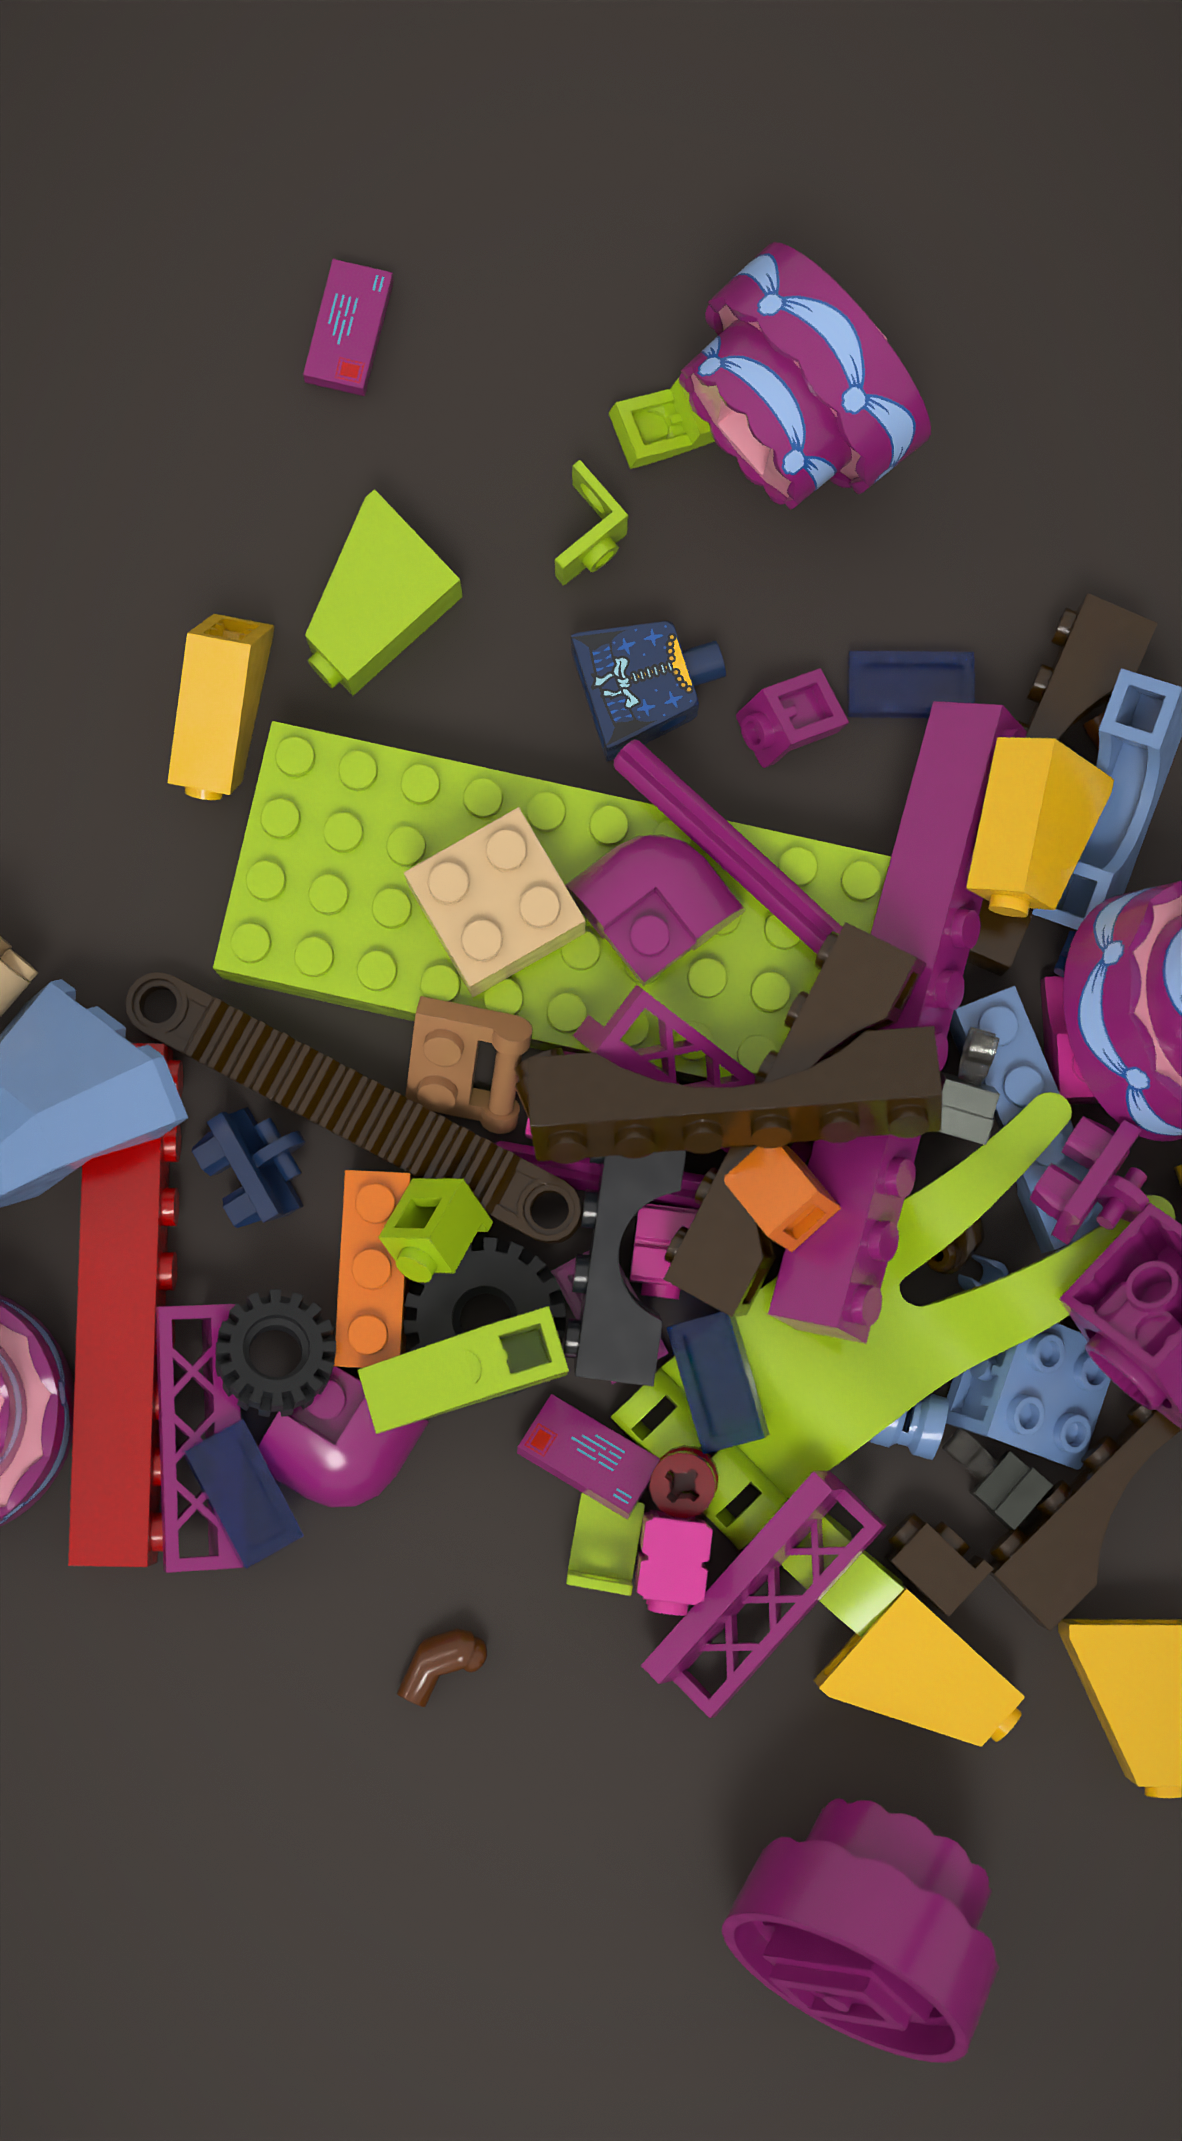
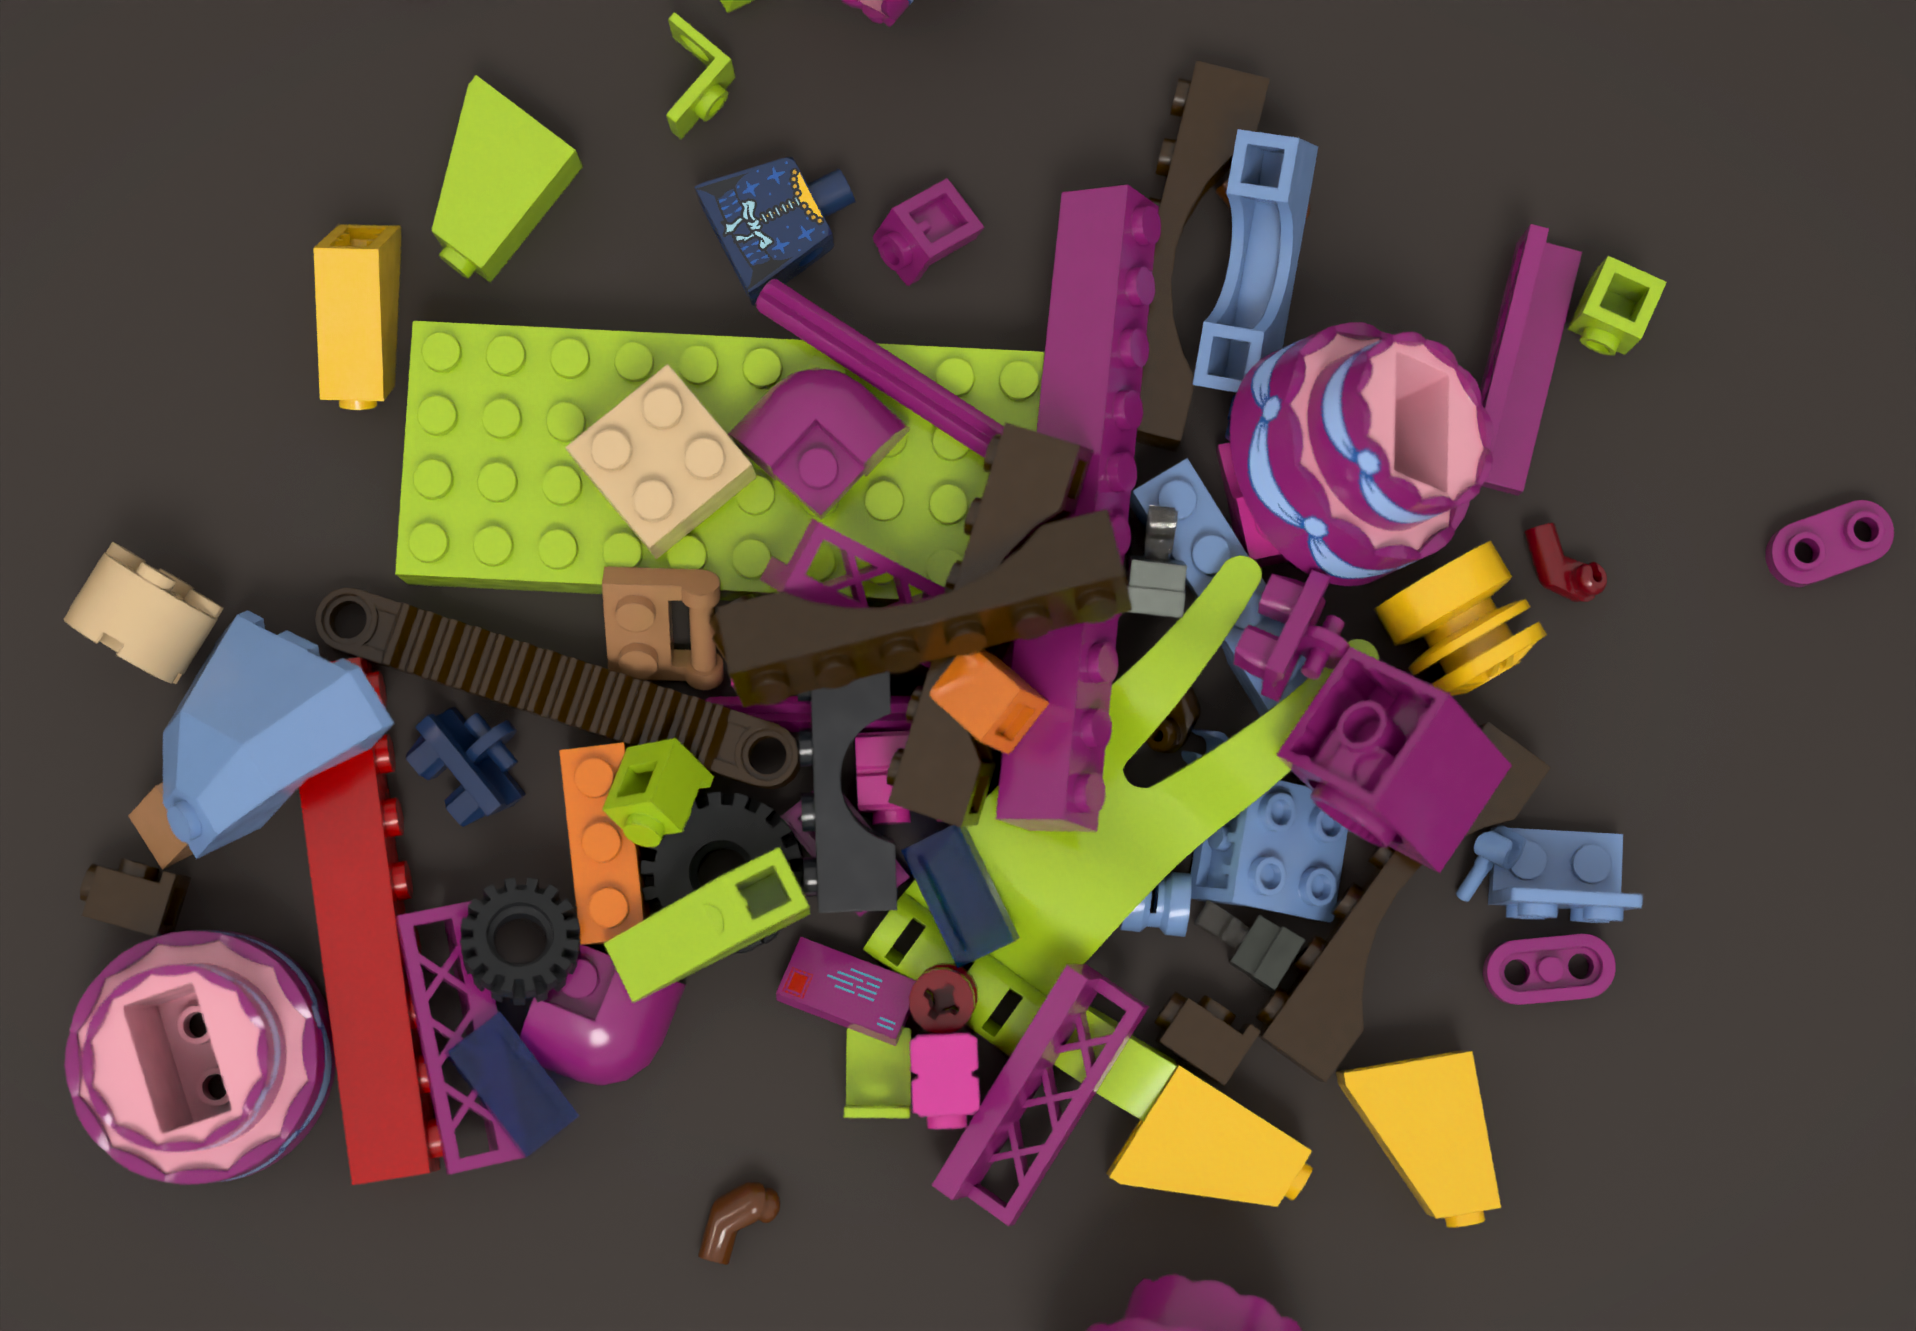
camera: 10 degrees left, 0 degrees up
(907, 682) = (1034, 177): clear blue tile -> none
(1034, 823) = (1178, 295): yellow slope -> none

